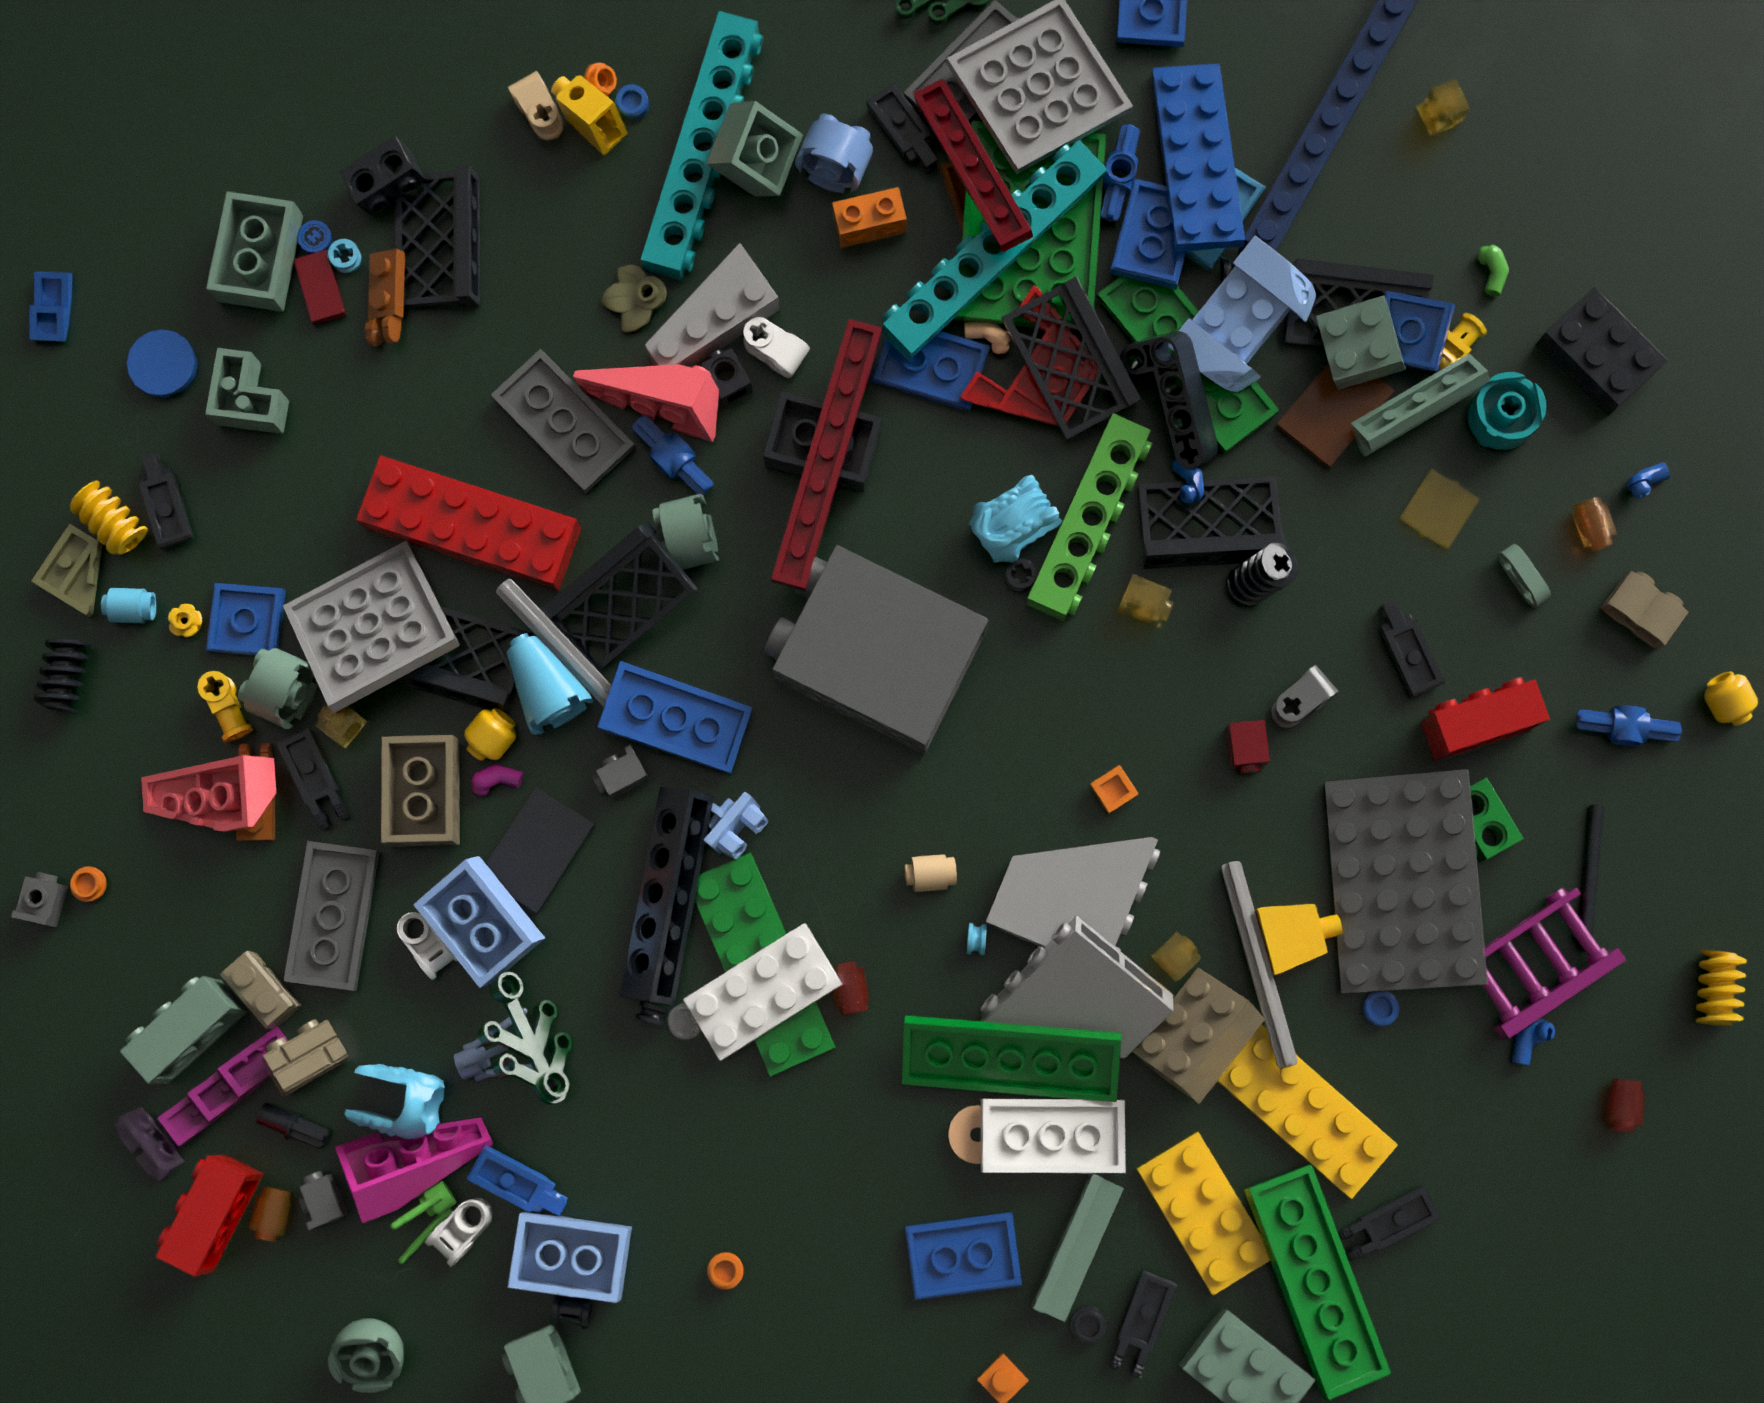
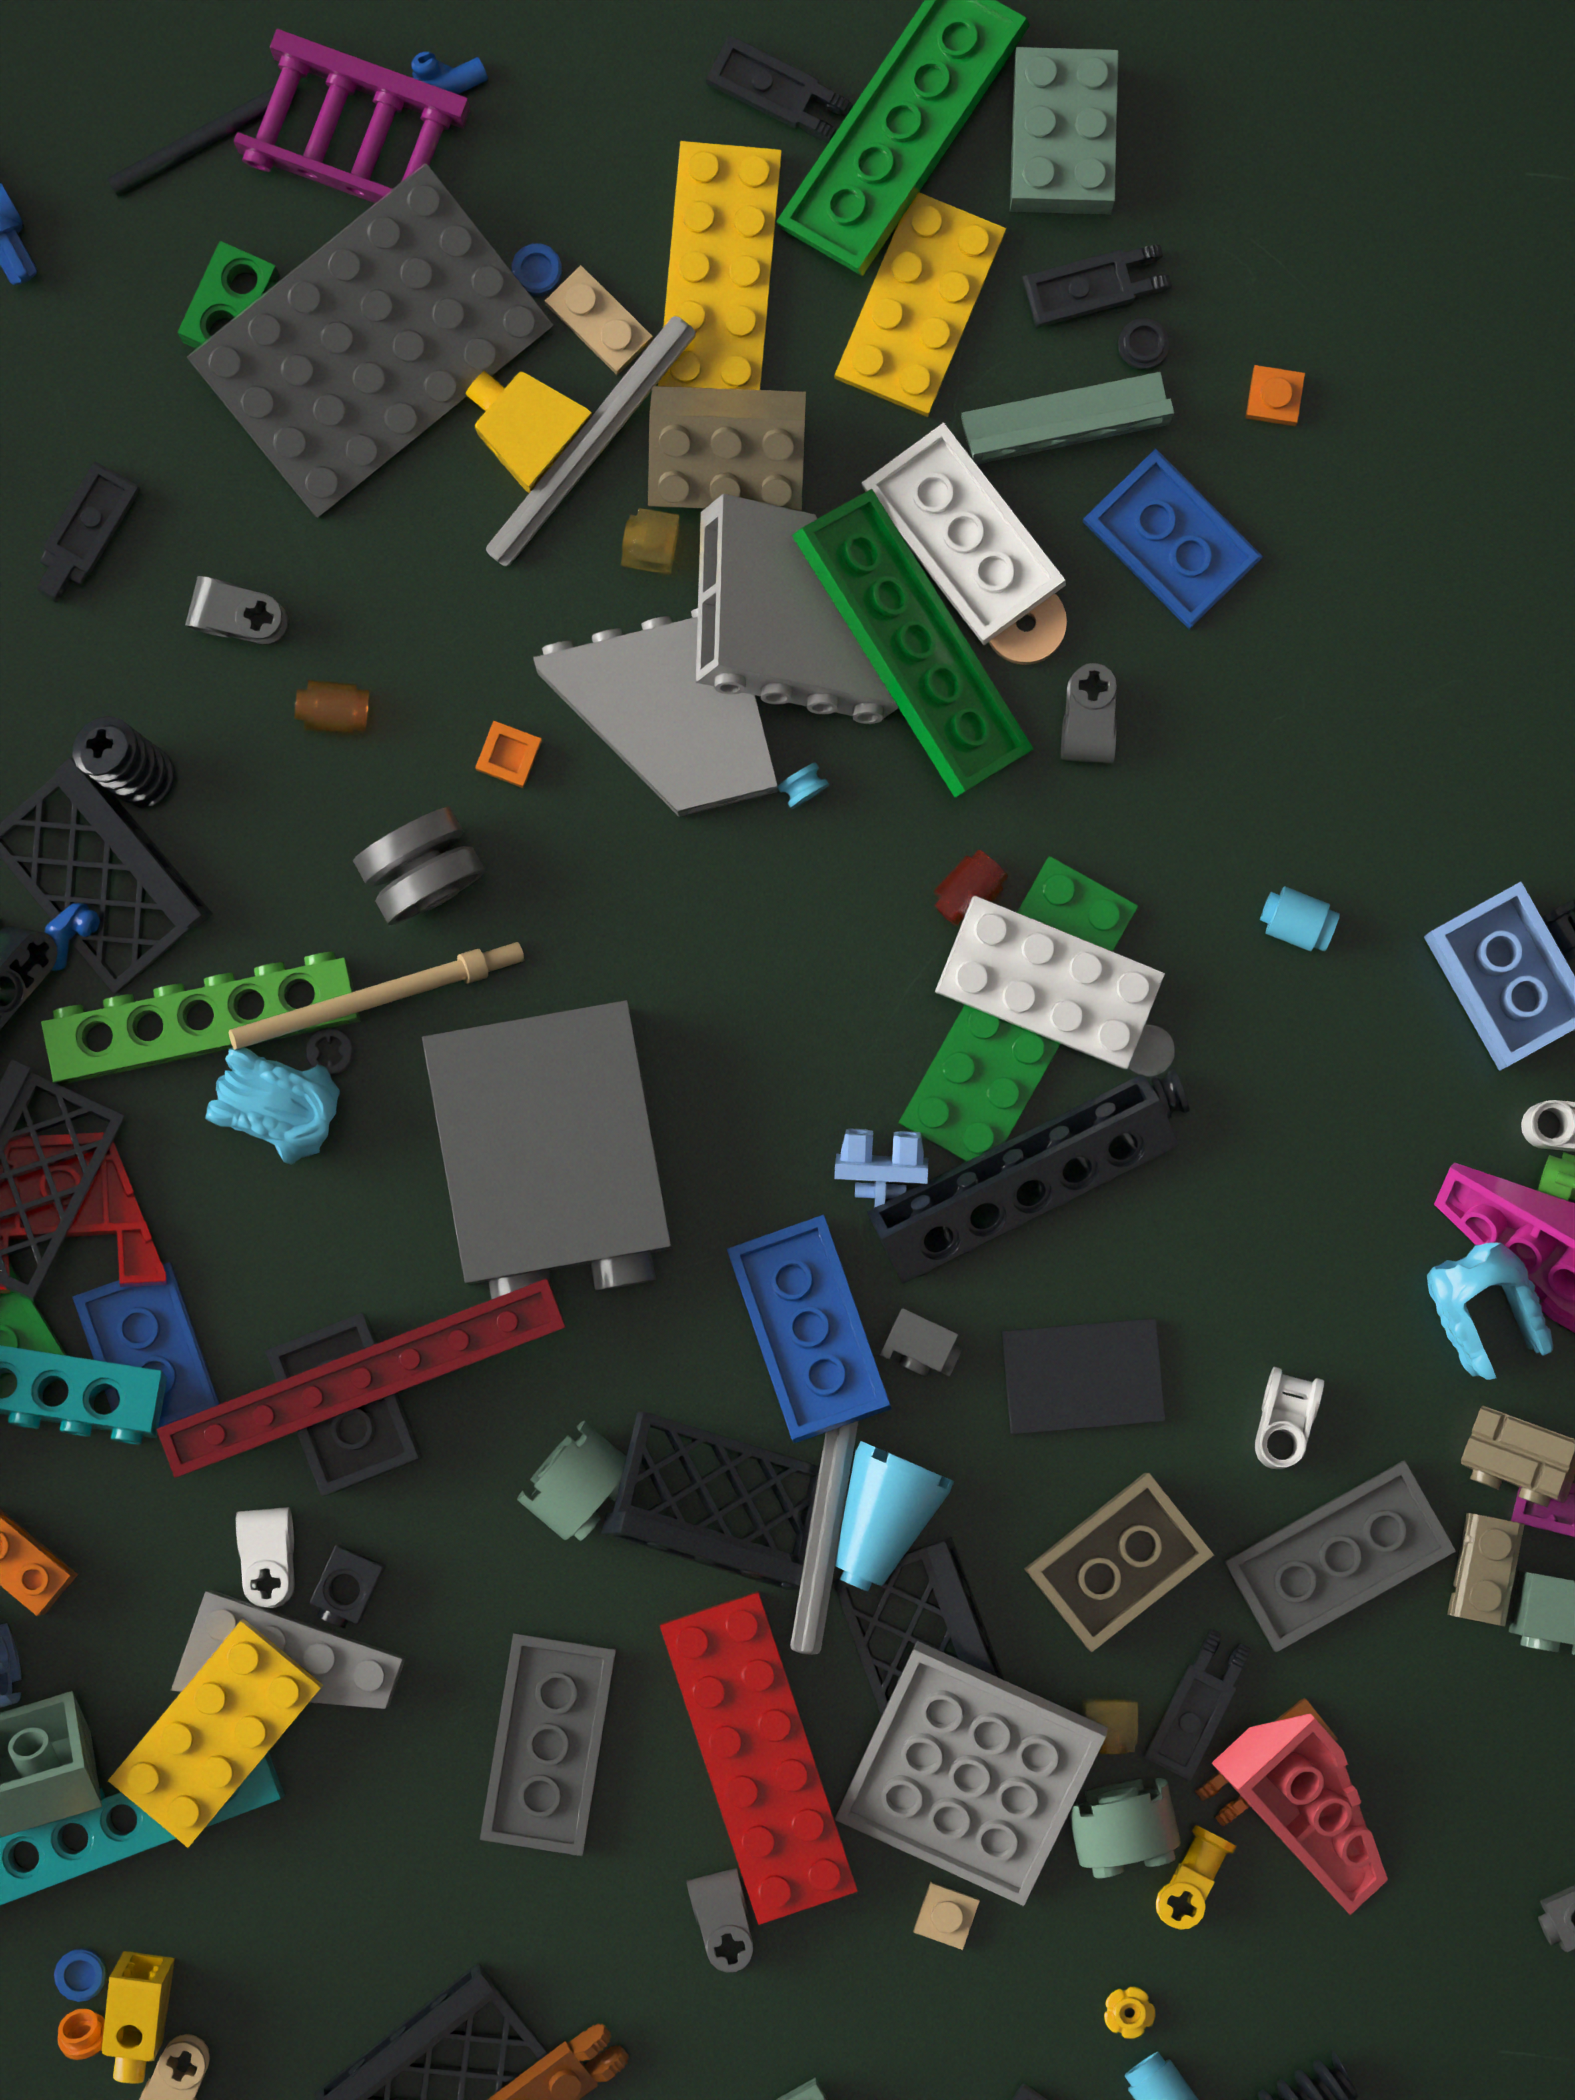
camera: 130 degrees left, 5 degrees up
(88, 884) = (1519, 1875): orange plate -> none
(245, 619) = (1073, 1940): blue tile -> none
(311, 563) = (946, 1915): none -> tan plate
(404, 443) = (721, 1910): none -> dark grey piece
(474, 1060) = (1378, 1258): sand blue plant -> none
(479, 921) = (1217, 1372): light blue brick -> none
(490, 734) = (990, 1534): yellow head -> none
(492, 775) = (1034, 1495): magenta arm -> none
(515, 1182) = (1476, 1103): blue hinge -> none
(529, 1043) = (1309, 1205): plant -> none
(629, 298) = (334, 1783): olive plate -> none
(664, 391) = (416, 1626): coral wedge -> none
(672, 455) = (493, 1577): blue axle -> none
(693, 1161) = (1299, 919): none -> medium azure brick
(699, 248) = (215, 1732): none -> yellow plate
(725, 1270) = (1392, 793): orange plate -> none
(891, 1125) = (1090, 725): none -> dark grey piece
(931, 873) = (766, 894): tan brick -> none
(992, 332) = (53, 1307): light nougat arm -> none
(1011, 682) = (469, 967): none -> tan bar
(1080, 691) = (419, 865): none -> flat silver wheel
(1146, 600) = (253, 879): clear yellow brick -> none
(1211, 712) = (332, 707): none -> clear orange brick
(1247, 746) = (342, 635): dark red brick -> none
(1326, 1021) = (598, 320): none -> tan plate
(1484, 718) = (109, 383): red brick -> none

